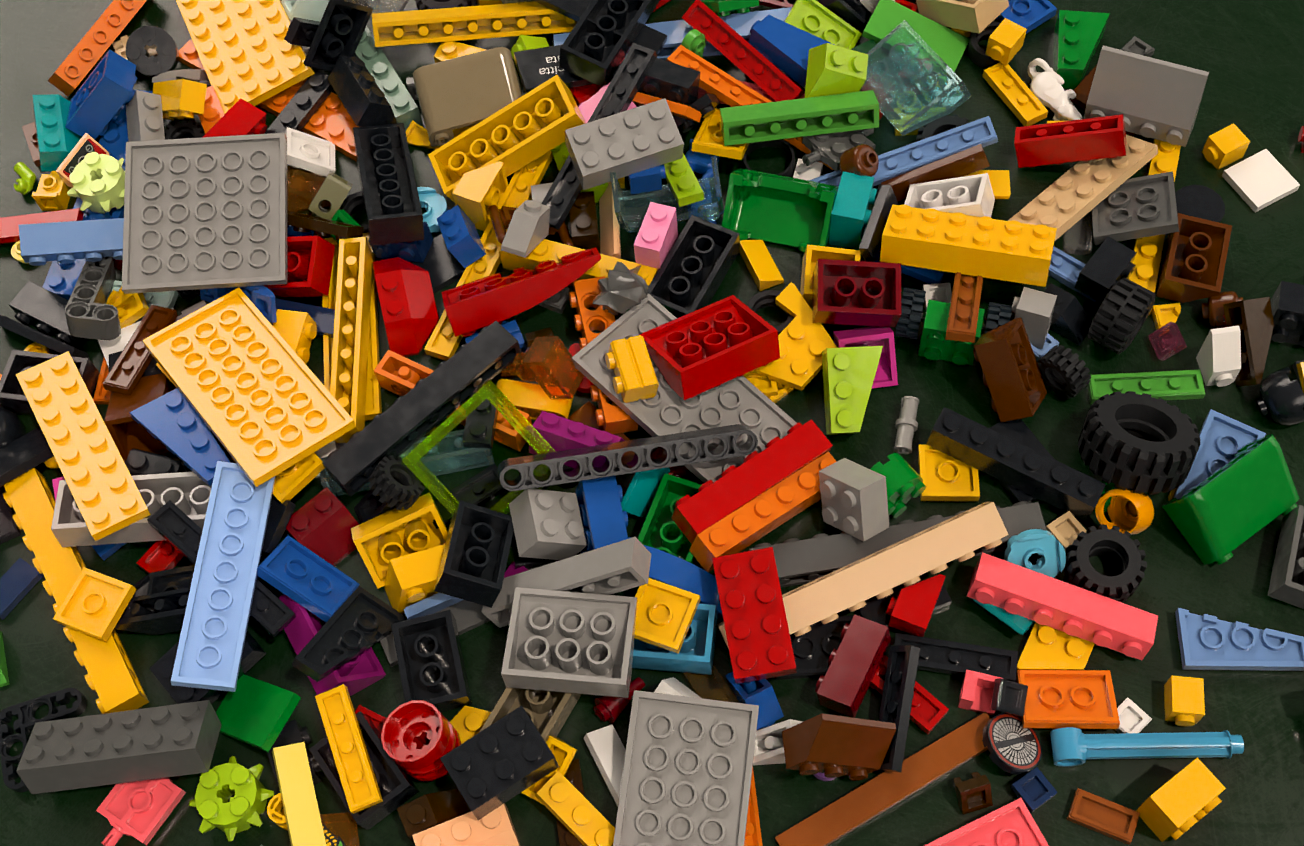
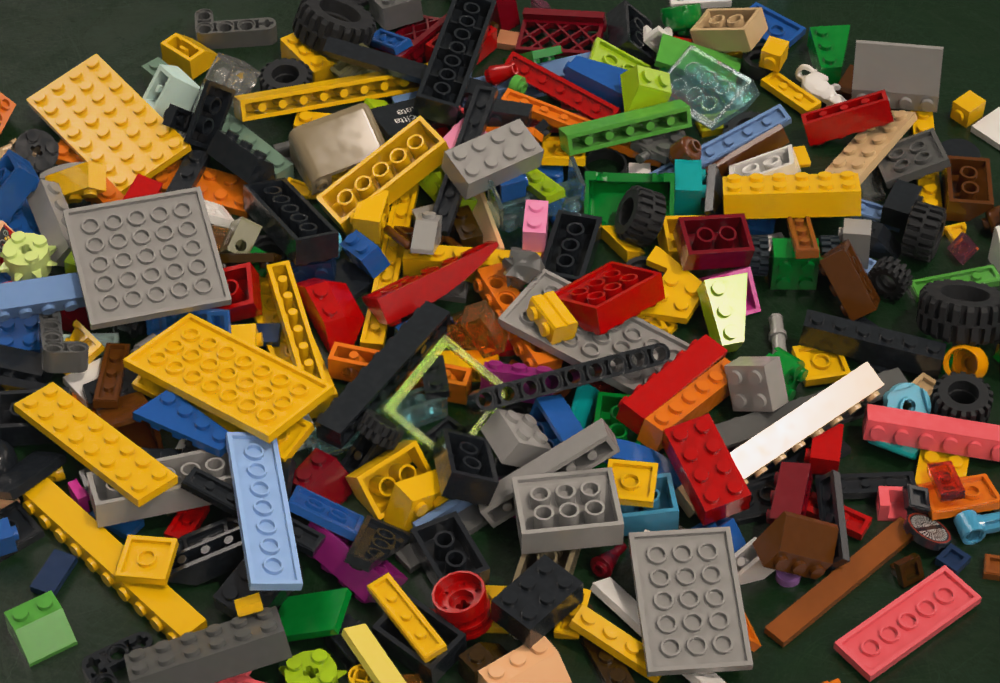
camera: 20 degrees left, 15 degrees down
(174, 697) = (248, 605): none -> yellow tile
(677, 24) = (499, 73): none -> red cone
(784, 239) = (640, 216): none -> black tyre
(1053, 679) = (946, 481): none -> clear red plate

